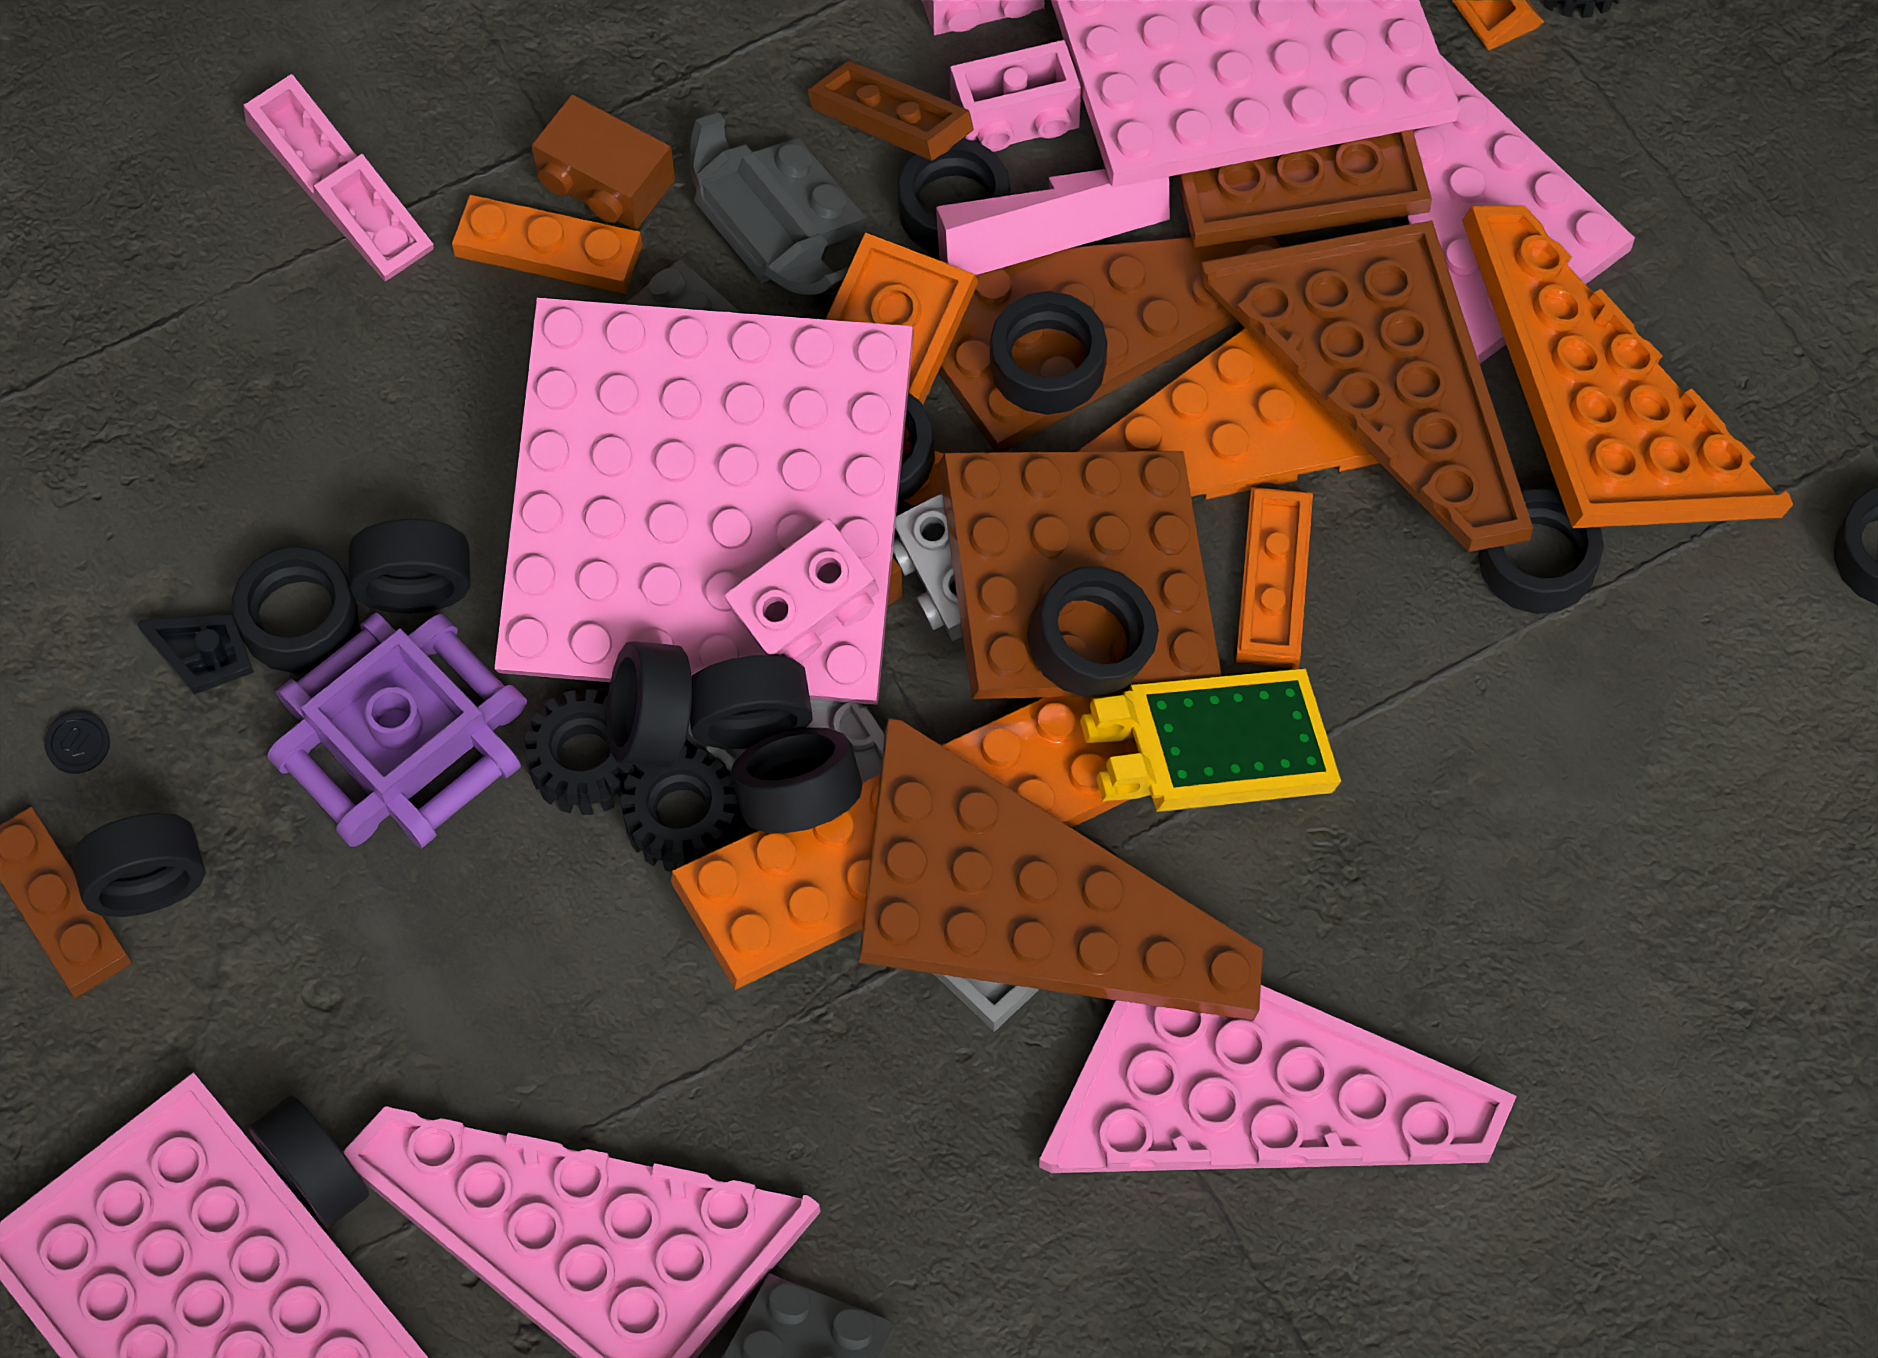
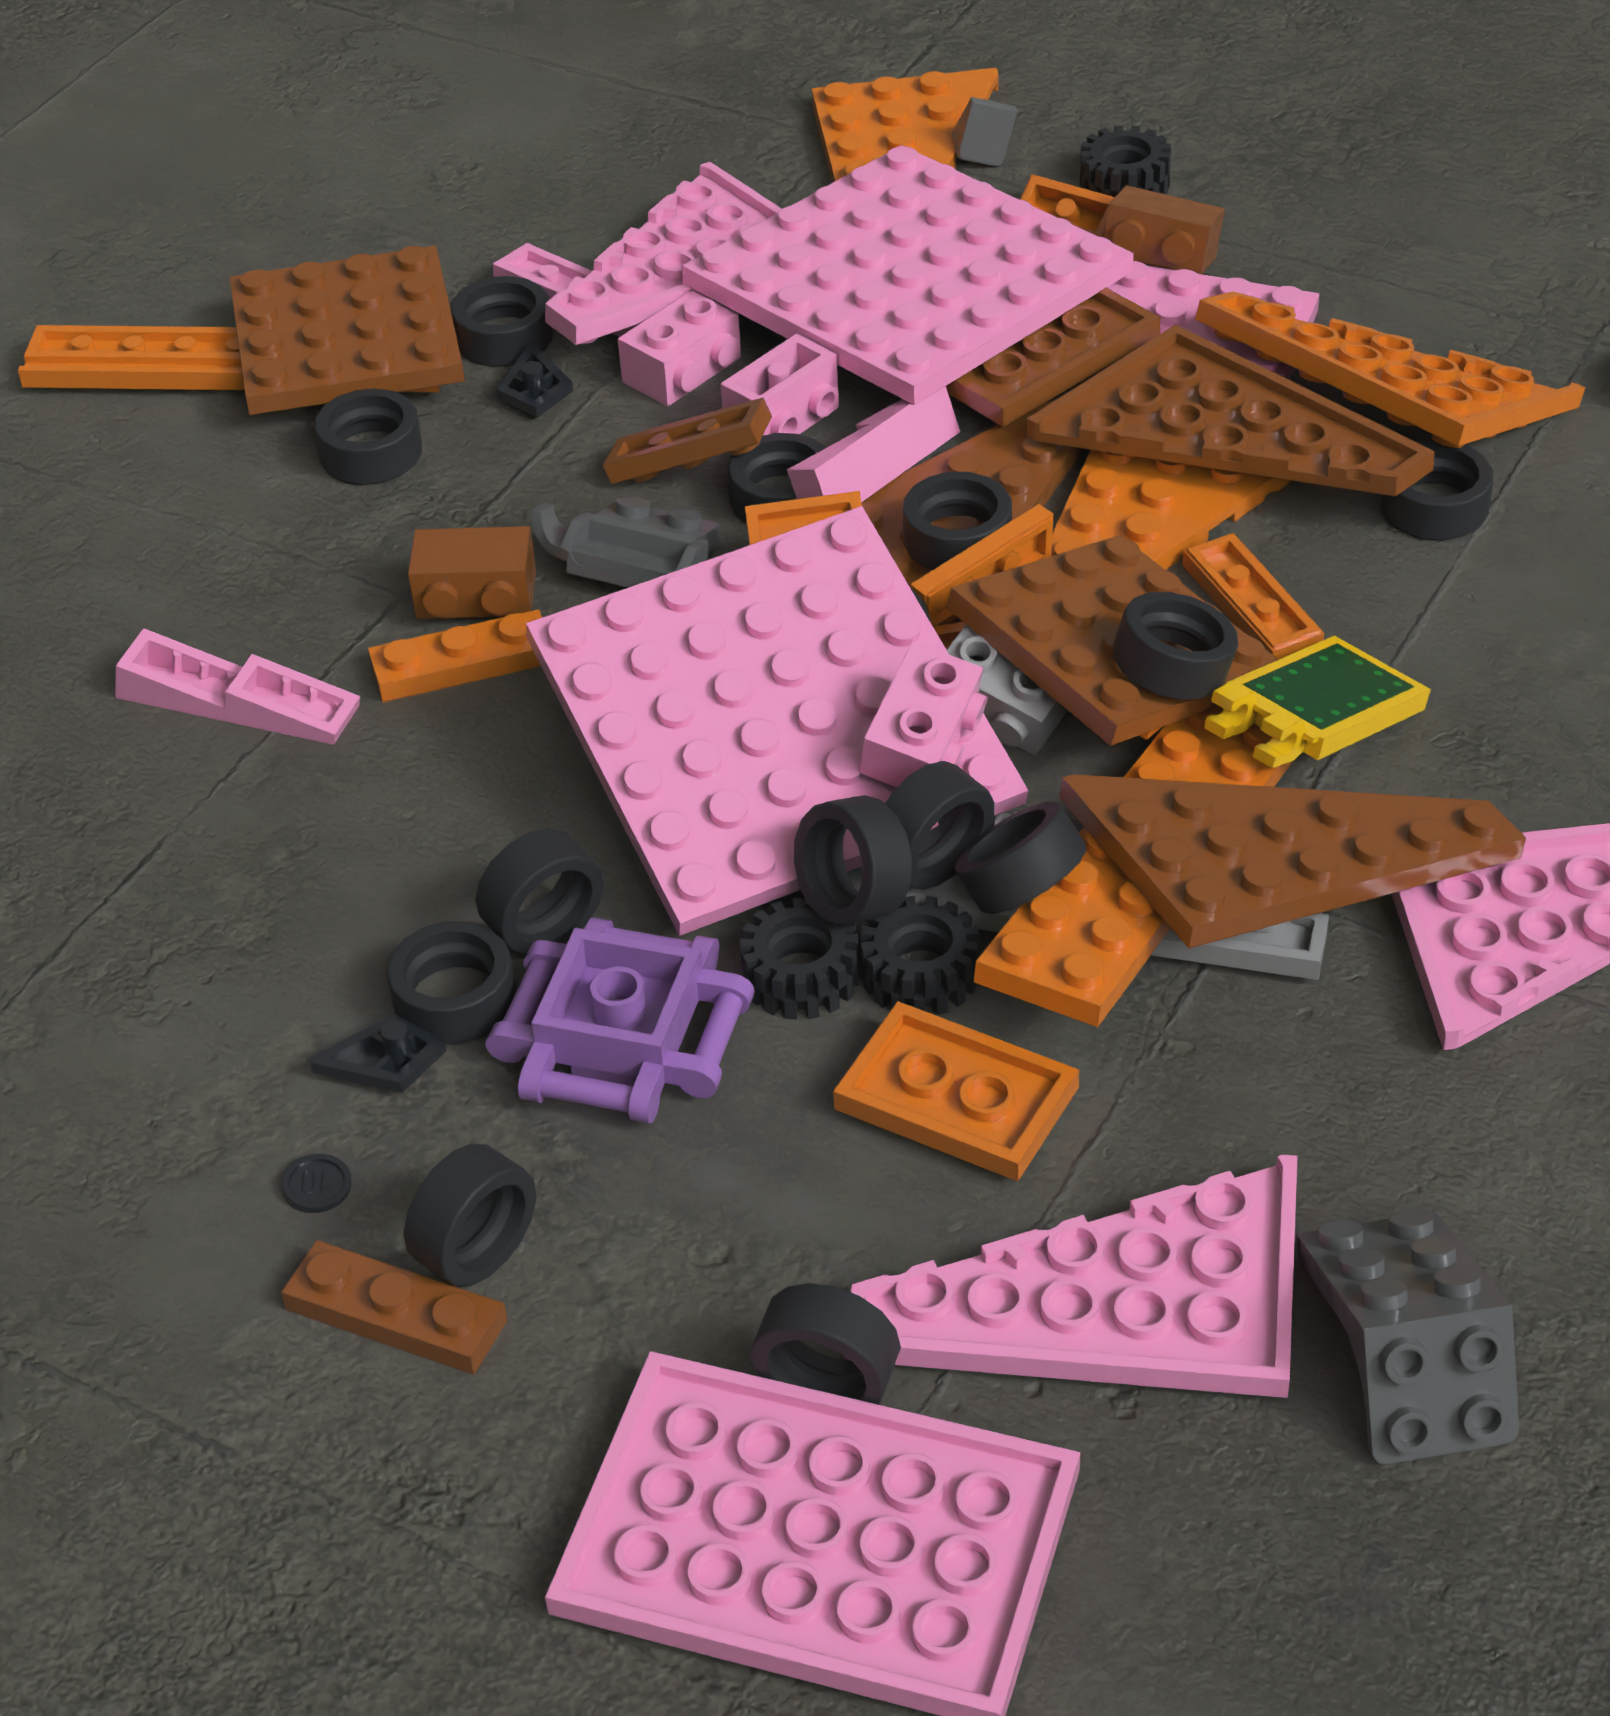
camera: 30 degrees left, 20 degrees down
(609, 964) = (957, 1090): none -> orange plate
(1033, 420) = (1011, 546): none -> orange tile
(1537, 76) = (1164, 229): none -> dark orange brick

